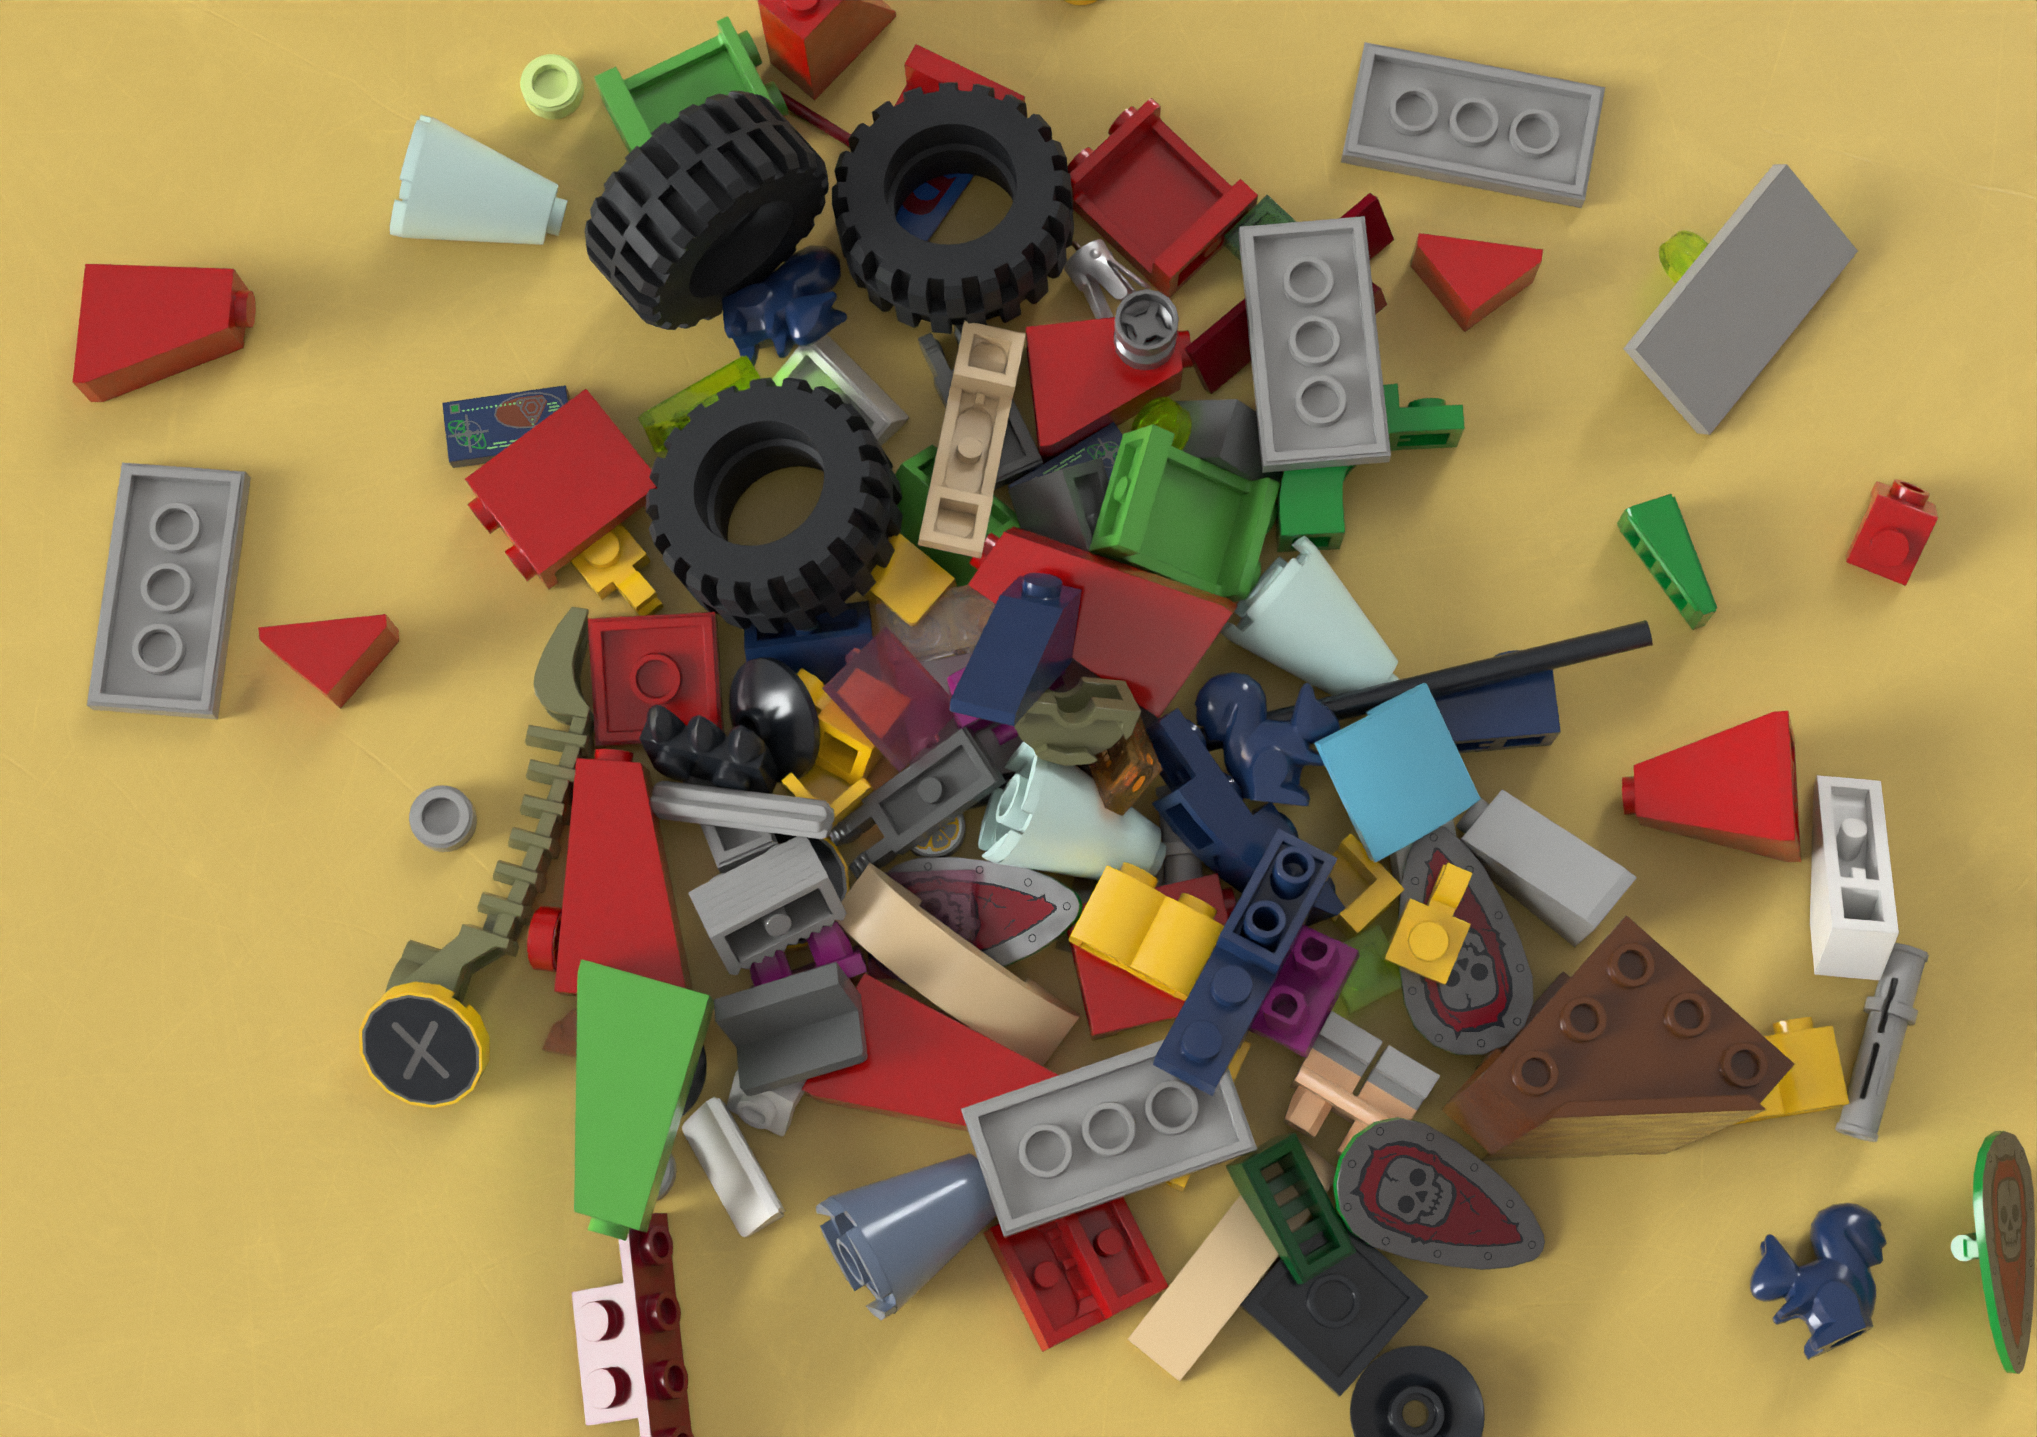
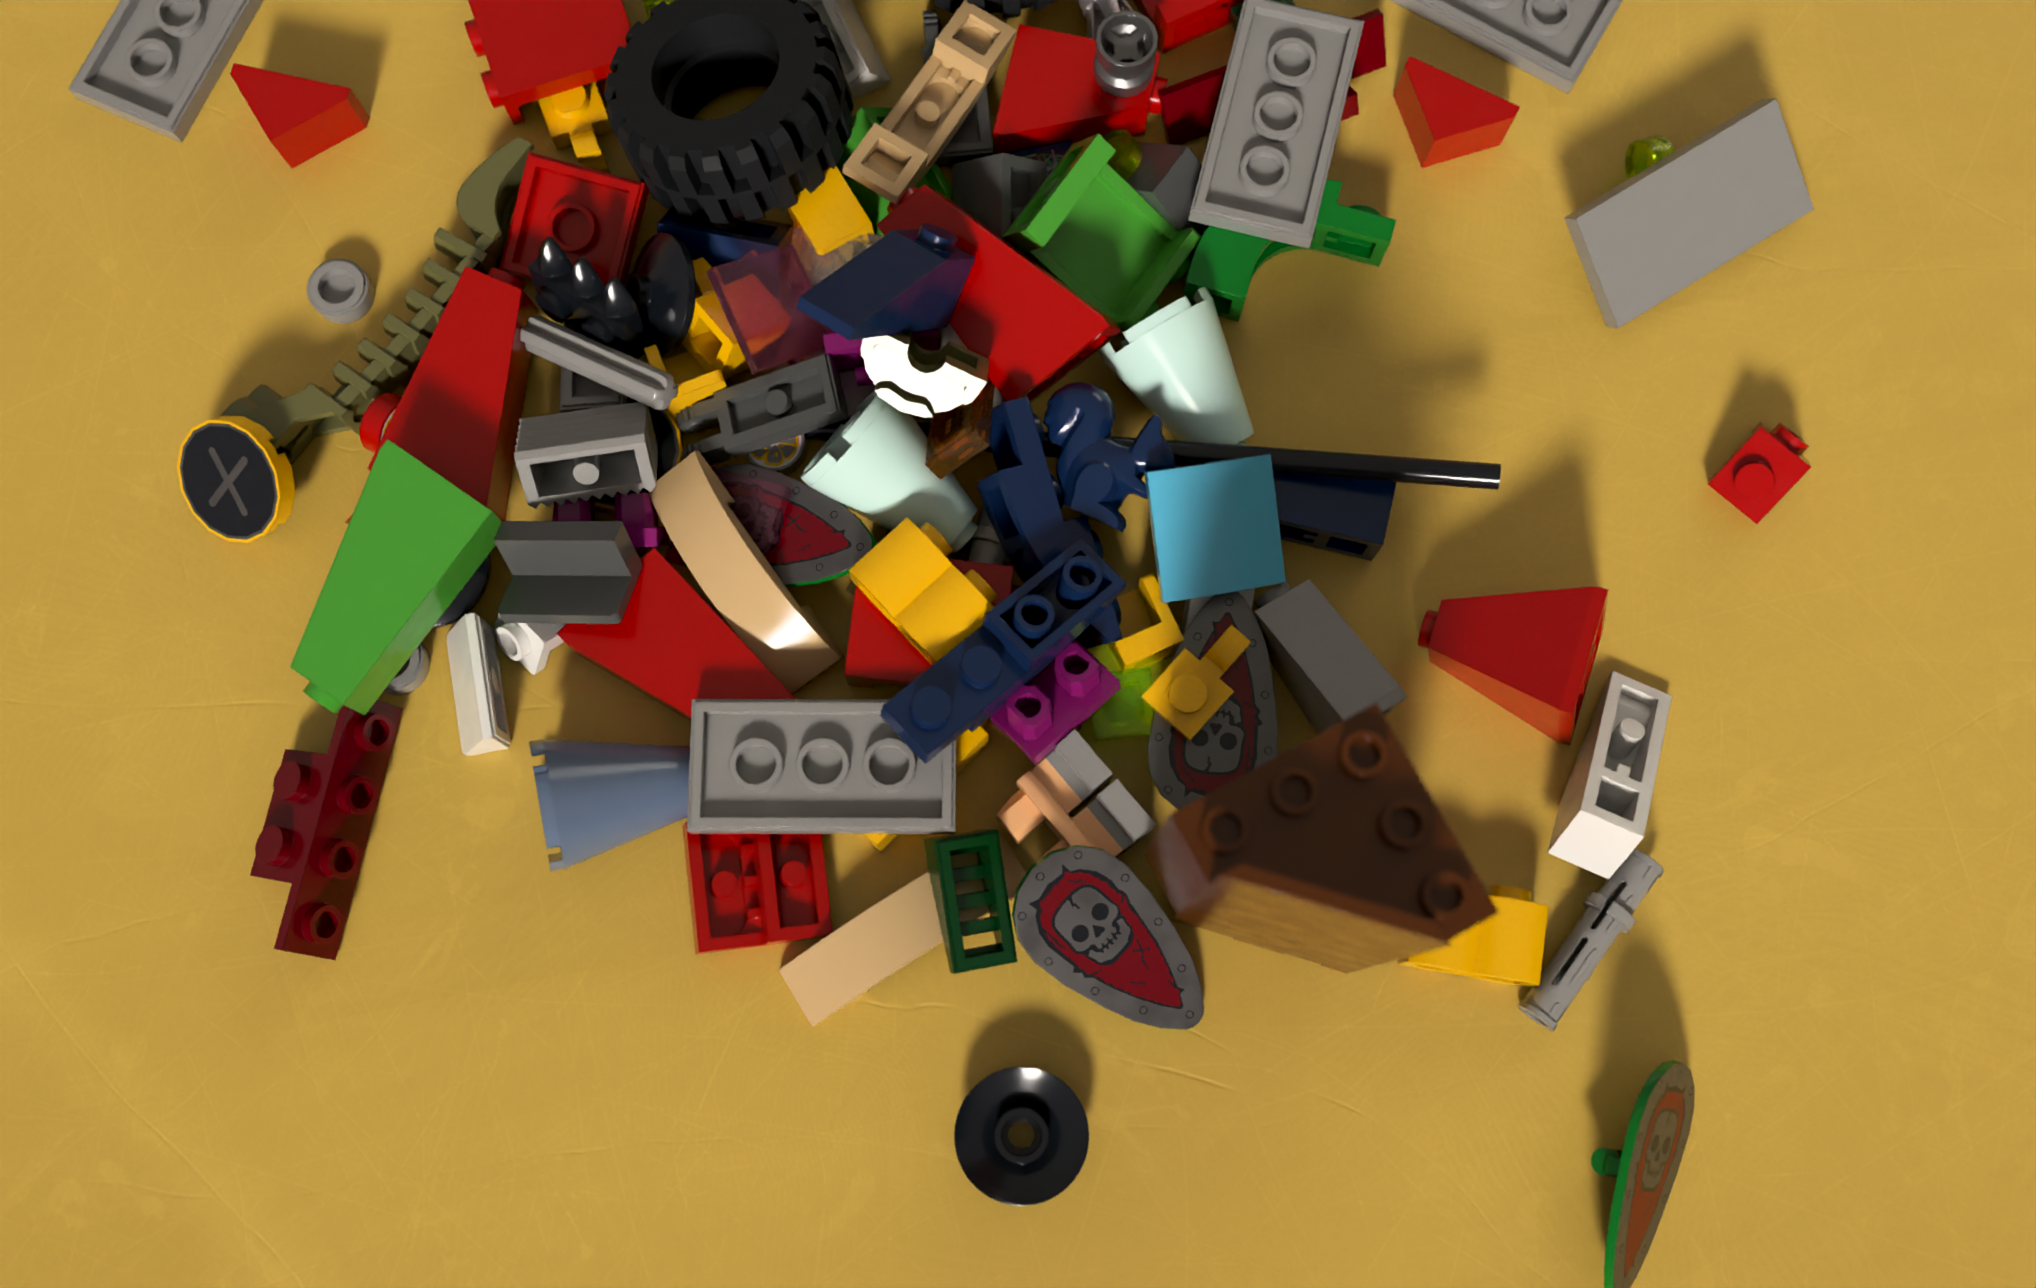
camera: 15 degrees right, 0 degrees up
(1339, 1316) = (980, 1015): black plate -> none
(1665, 547) = (1541, 415): green slope -> none
(1833, 1291) = (1464, 1158): dark blue animal -> none

